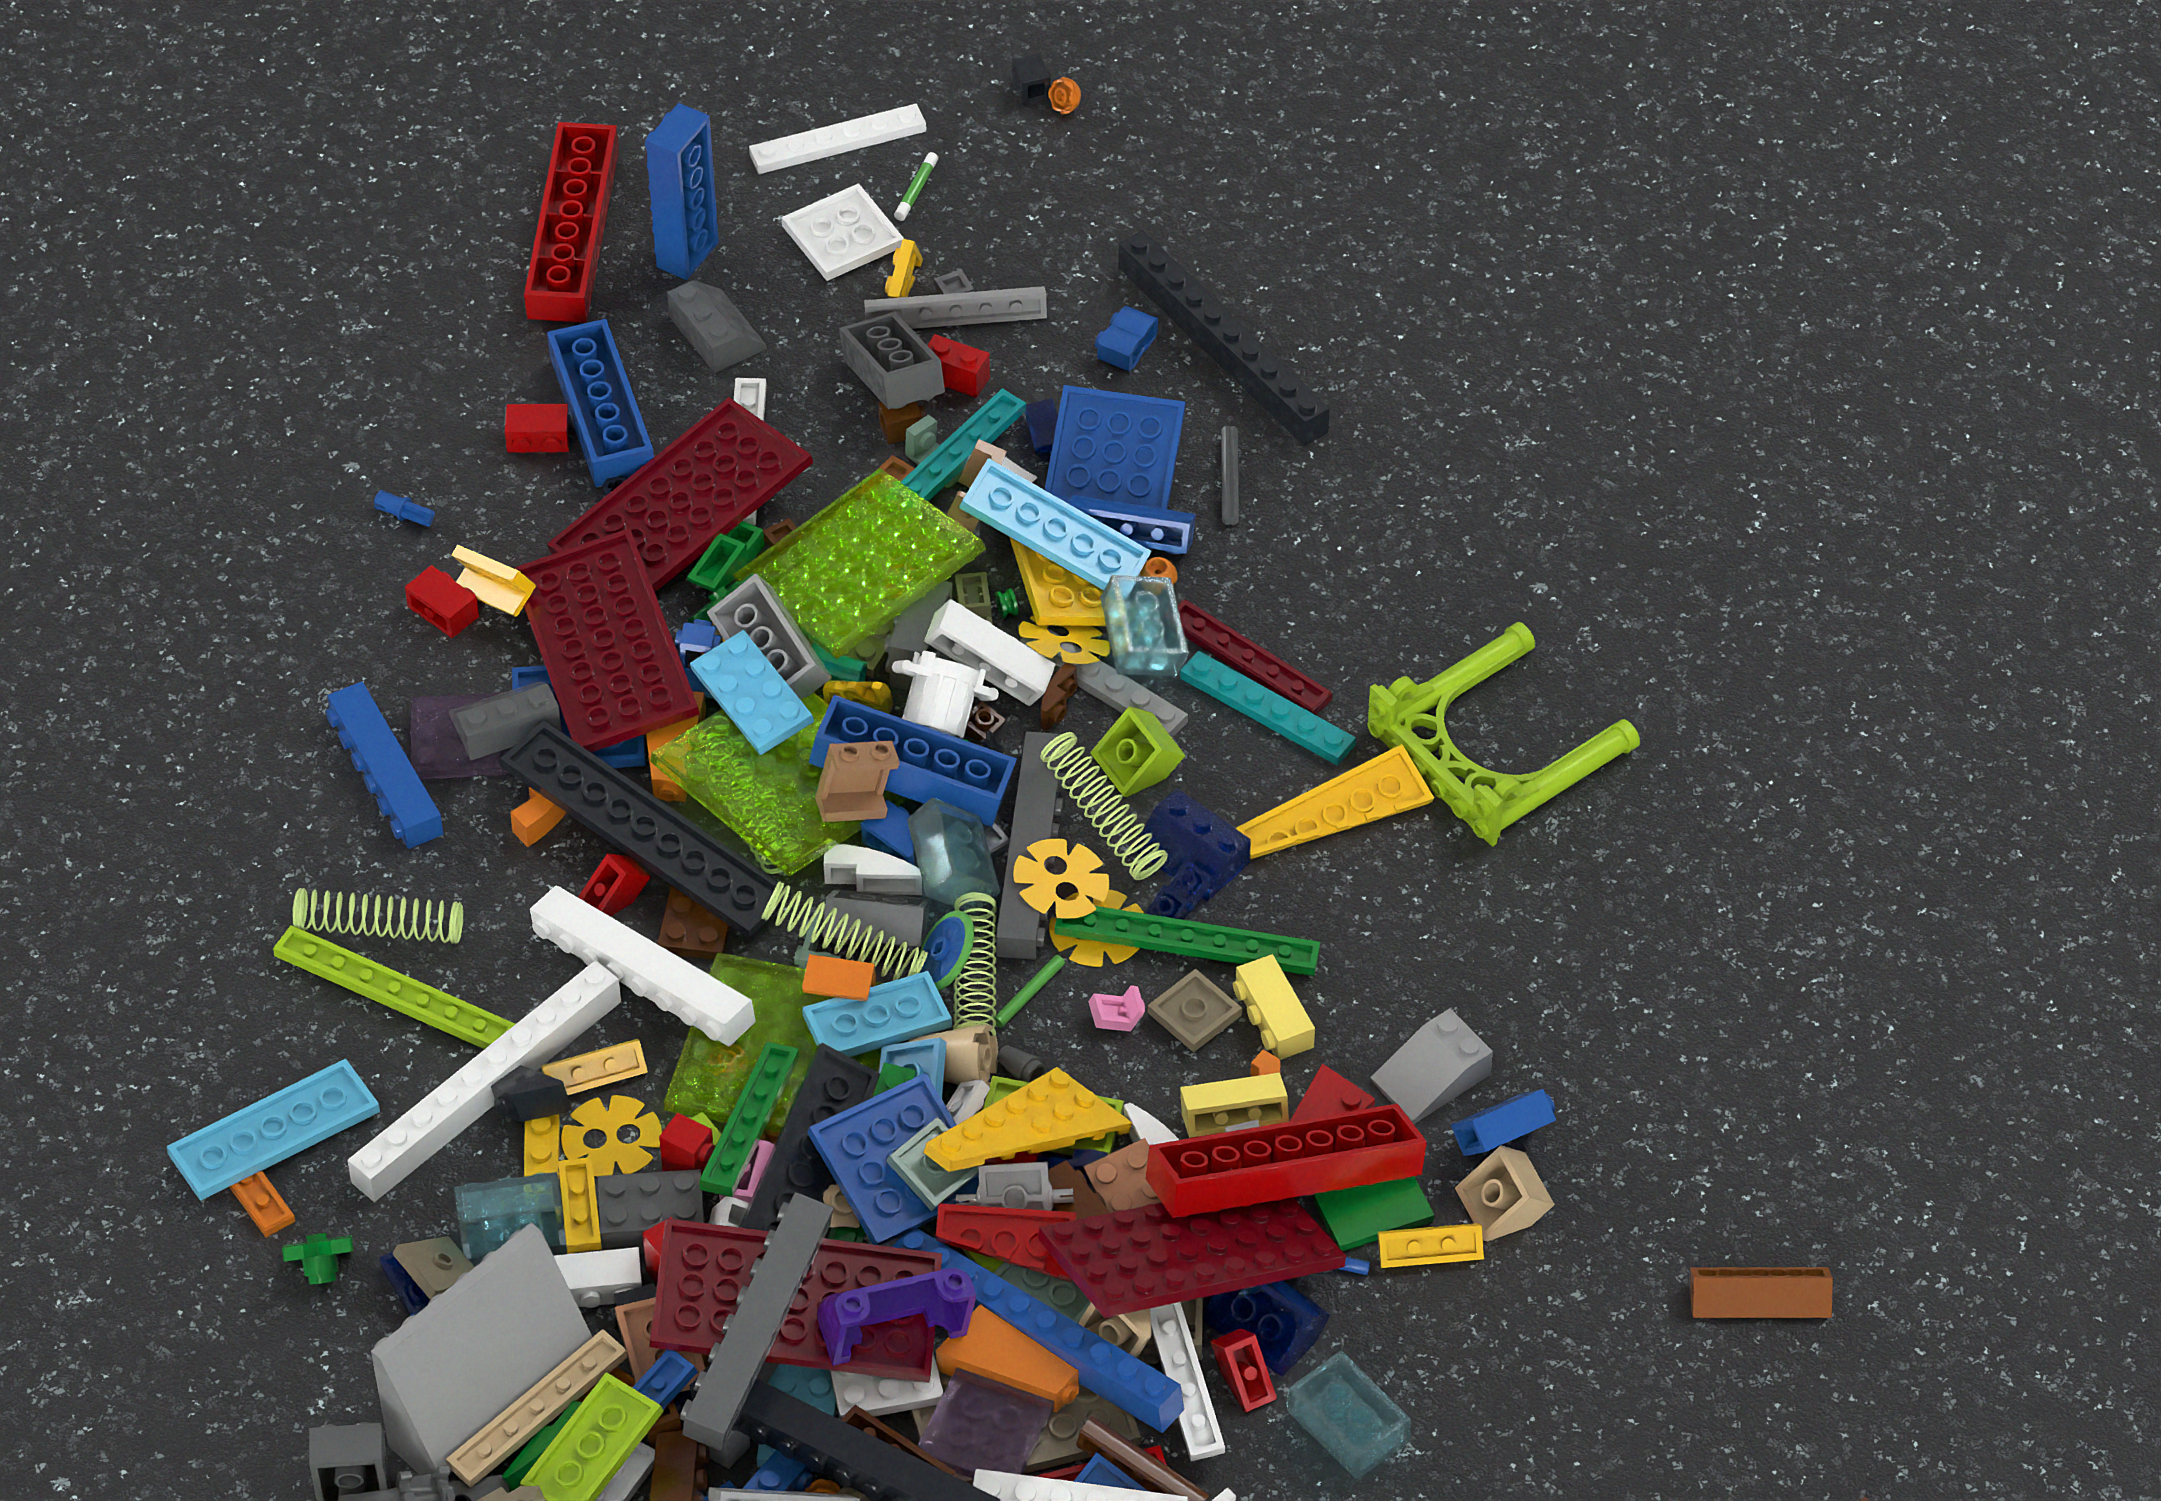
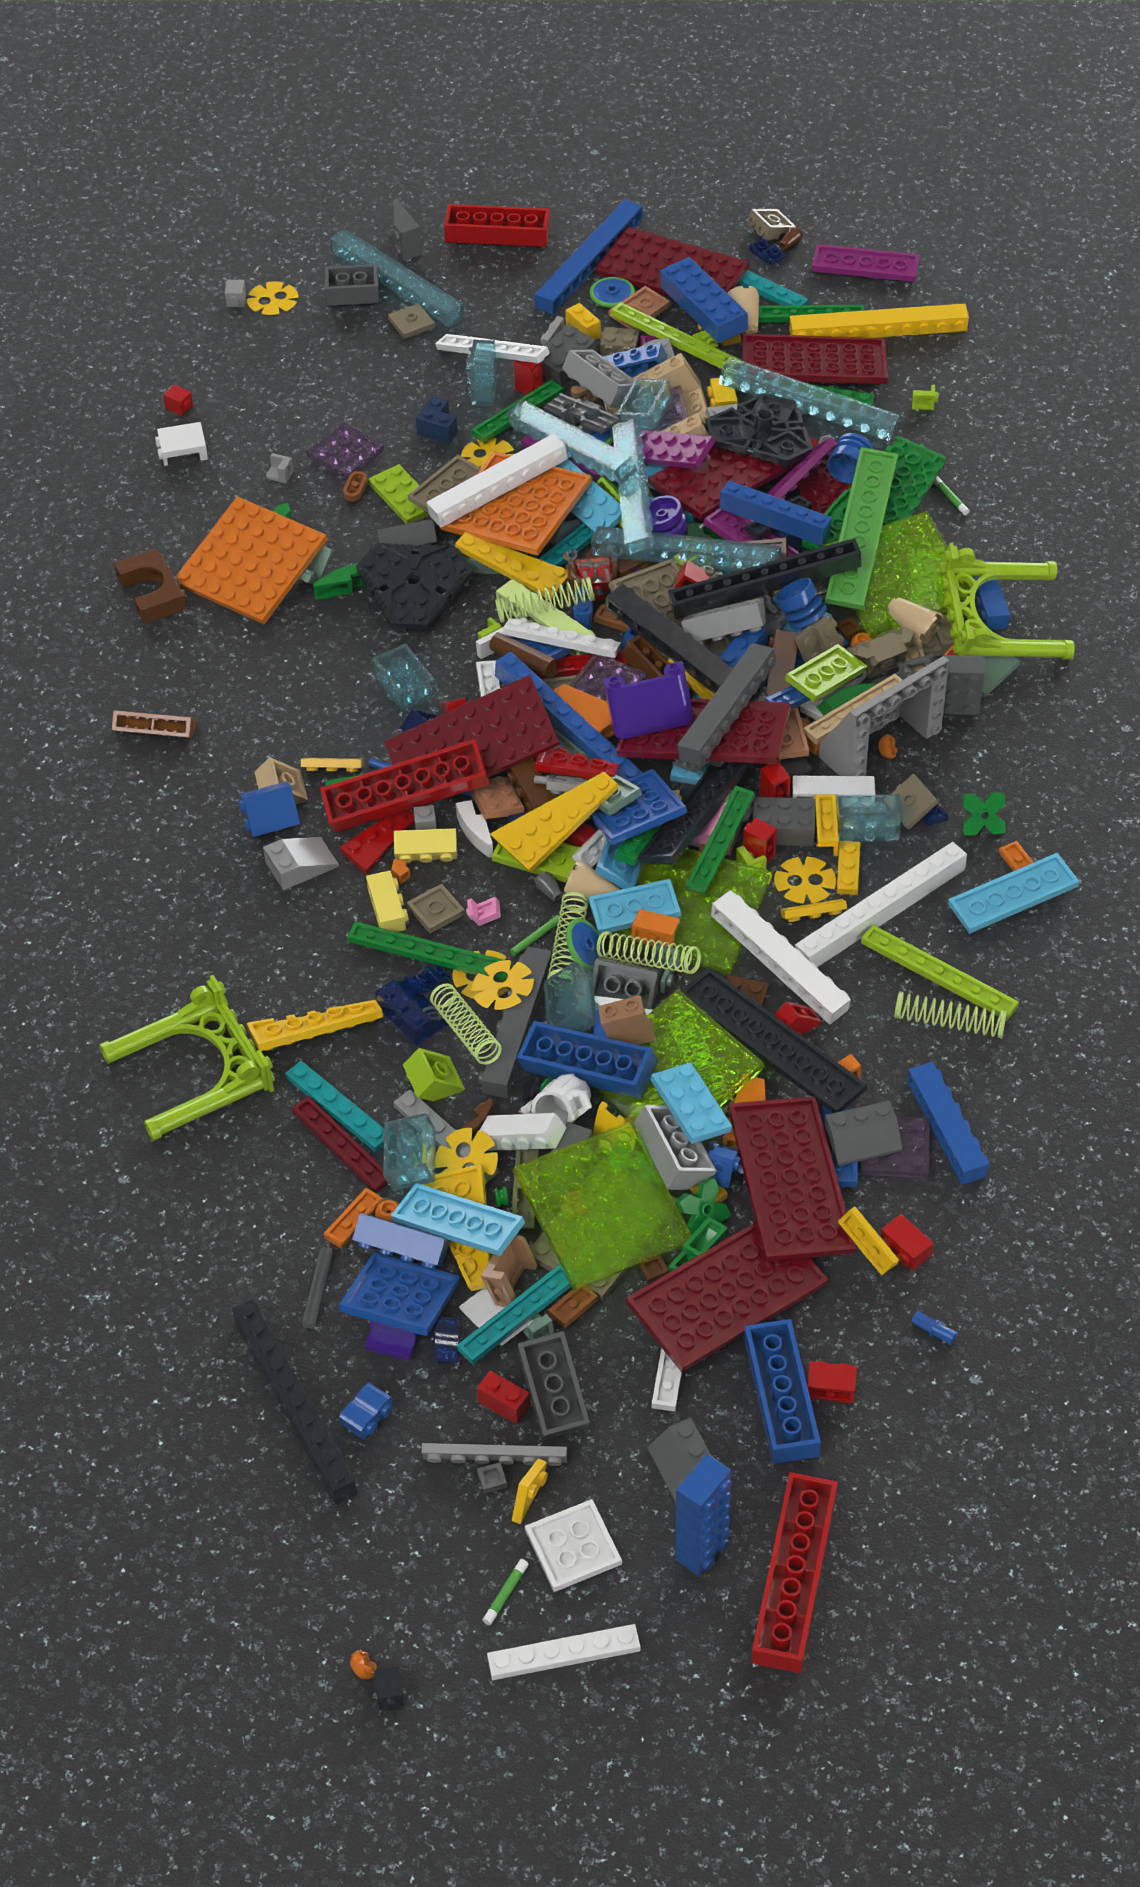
camera: 170 degrees left, 0 degrees up
(529, 1095) = (853, 886): black slope -> none
(1205, 565) = (344, 1227): none -> orange tile

